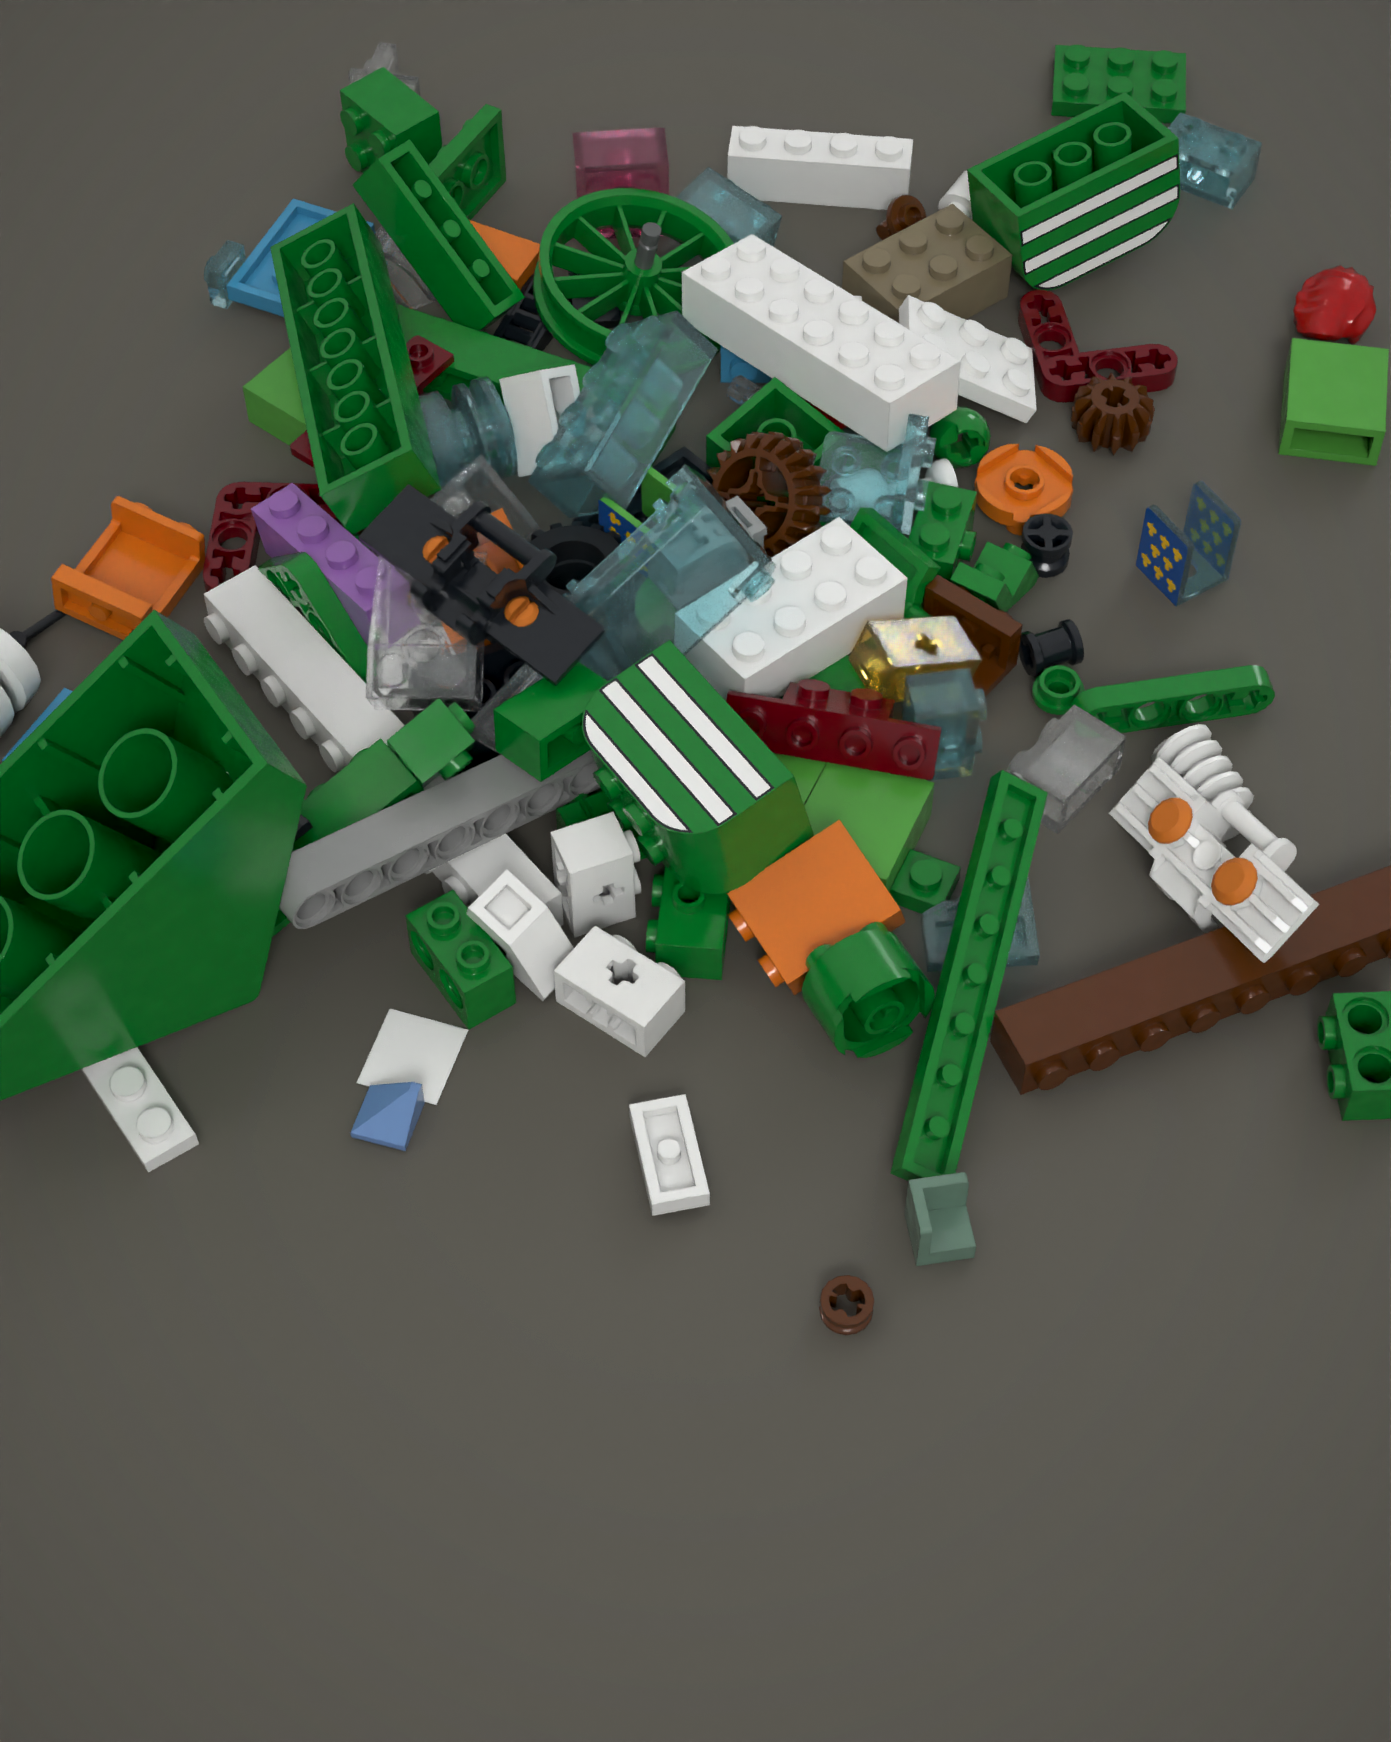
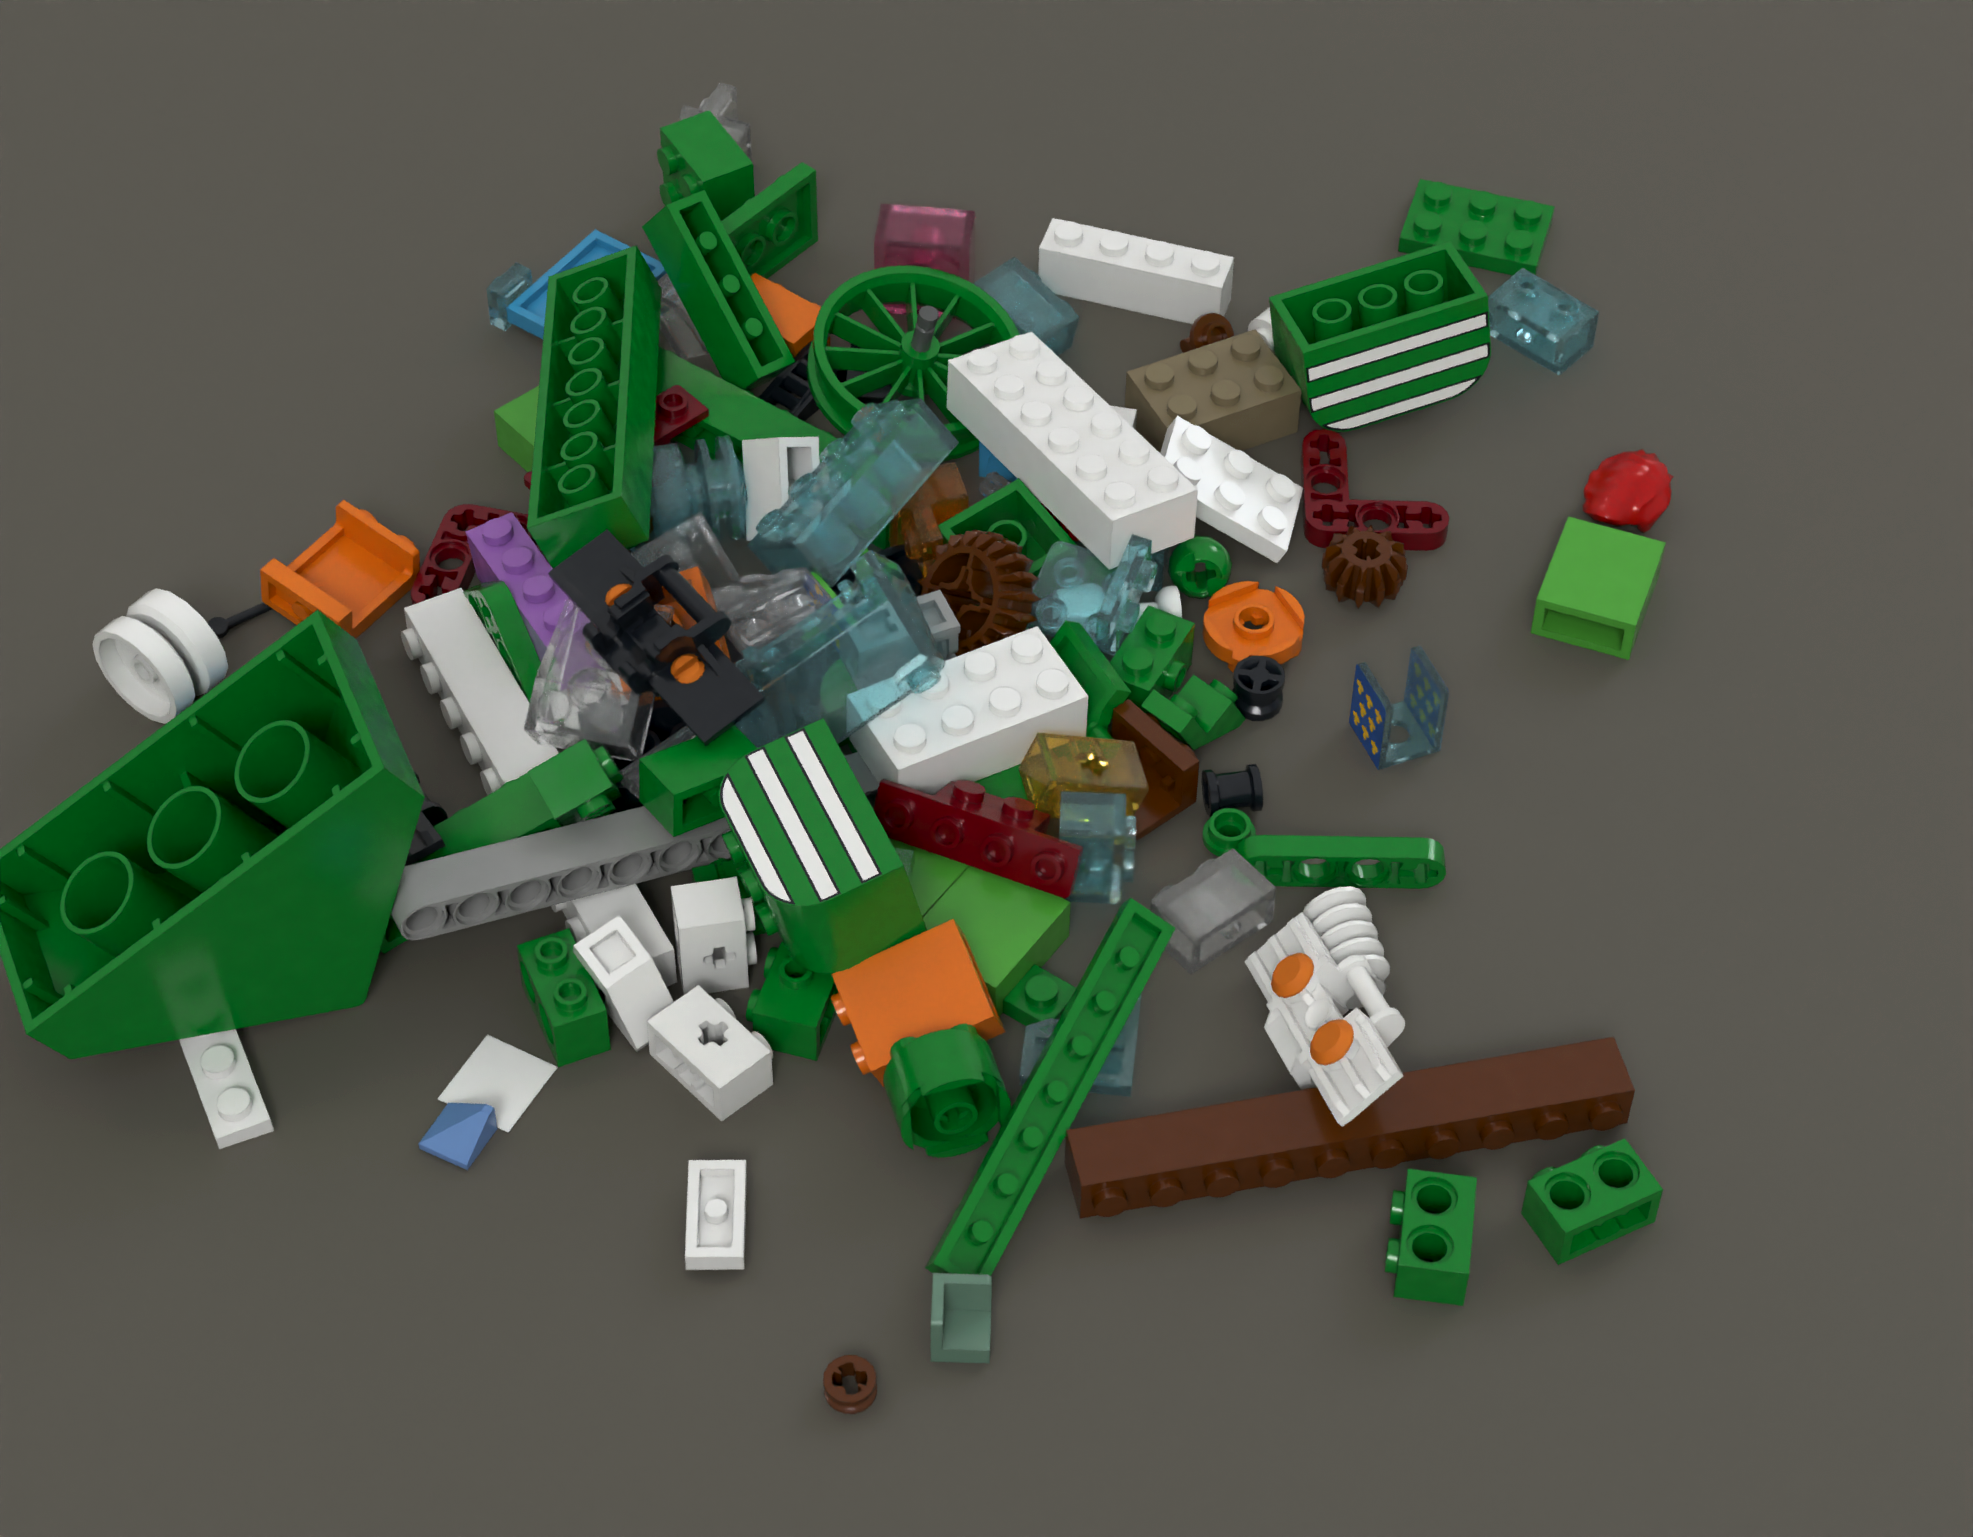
camera: 10 degrees right, 5 degrees down
(578, 535) = (768, 605): none -> clear wing
(690, 436) = (932, 504): none -> clear orange brick

